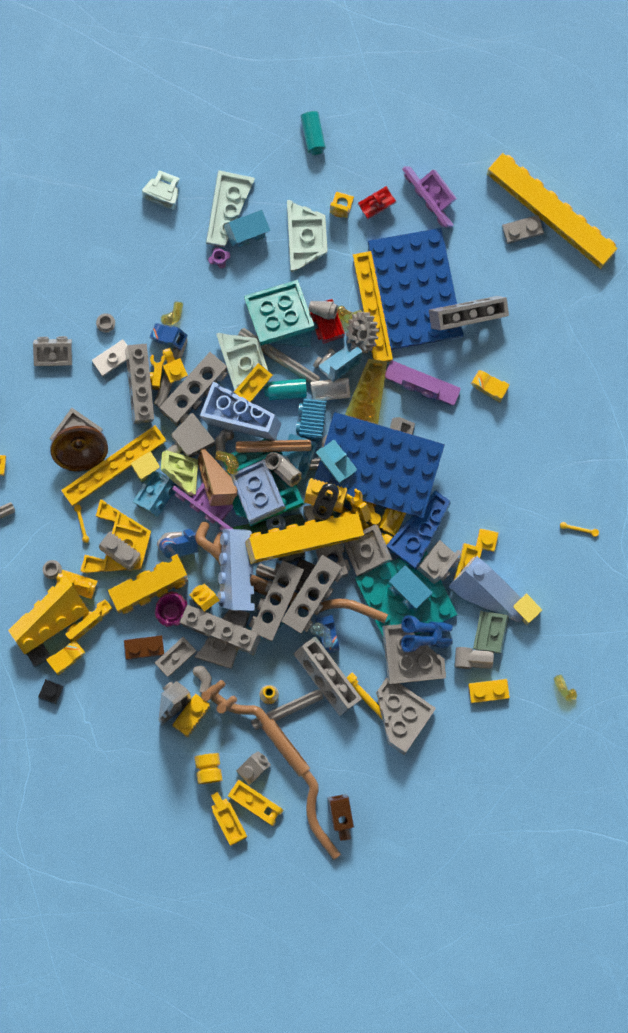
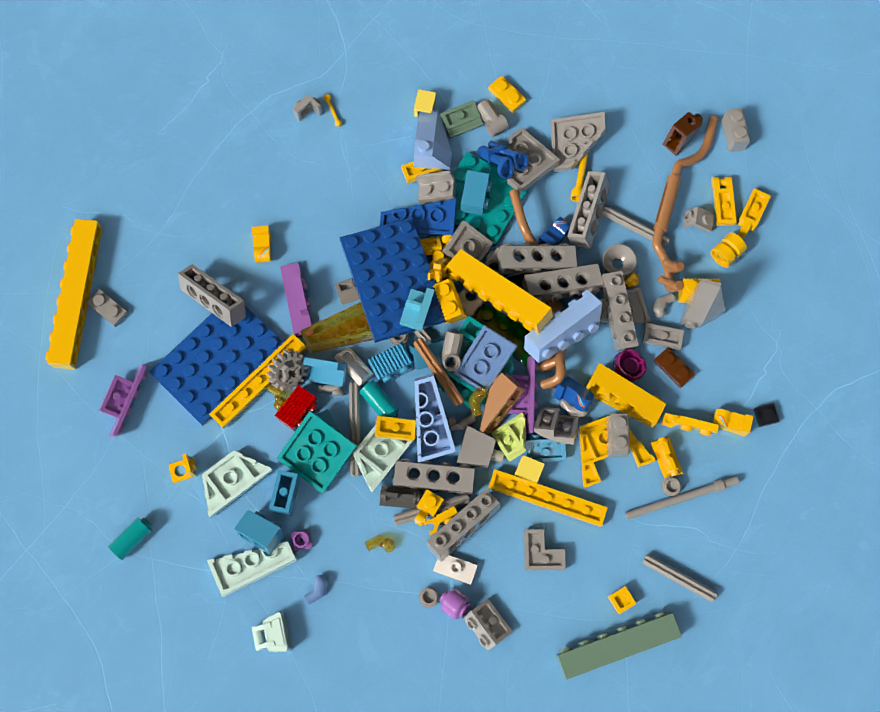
camera: 120 degrees left, 5 degrees down
(24, 607) = (717, 486): none -> light grey bar
(38, 655) = (746, 446): black plate -> none
(49, 616) = (714, 456): yellow wedge -> none
(77, 508) = (624, 478): yellow hinge -> none
(79, 448) = (558, 534): reddish brown dish -> none
(85, 337) = (455, 604): none -> medium lavender head
(164, 512) = (556, 426): none -> light grey slope
(167, 336) = (403, 531): blue leg -> none
(171, 246) = (319, 589): none -> medium blue arm
(198, 352) = (399, 497): none -> dark grey hinge
(204, 597) = (601, 343): yellow plate -> none
(242, 668) = (631, 280): none -> yellow plate
(261, 658) = (621, 253): none -> light grey piece
(263, 266) = (284, 493): none -> dark azure brick
(269, 699) = (636, 244): yellow cone -> none
(281, 525) = (494, 325): medium blue plate -> none
(310, 863) = (735, 130): none -> light grey brick
(324, 309) = (289, 411): light grey cone -> none
(324, 632) = (559, 231): clear light blue arm -> none
(326, 500) = (458, 290): black plate -> none
(376, 202) = (161, 438): red hips -> none
(487, 540) = (391, 169): yellow plate -> none
(562, 688) = (466, 42): clear yellow arm -> none
(597, 504) = (306, 105): none -> light grey bracket

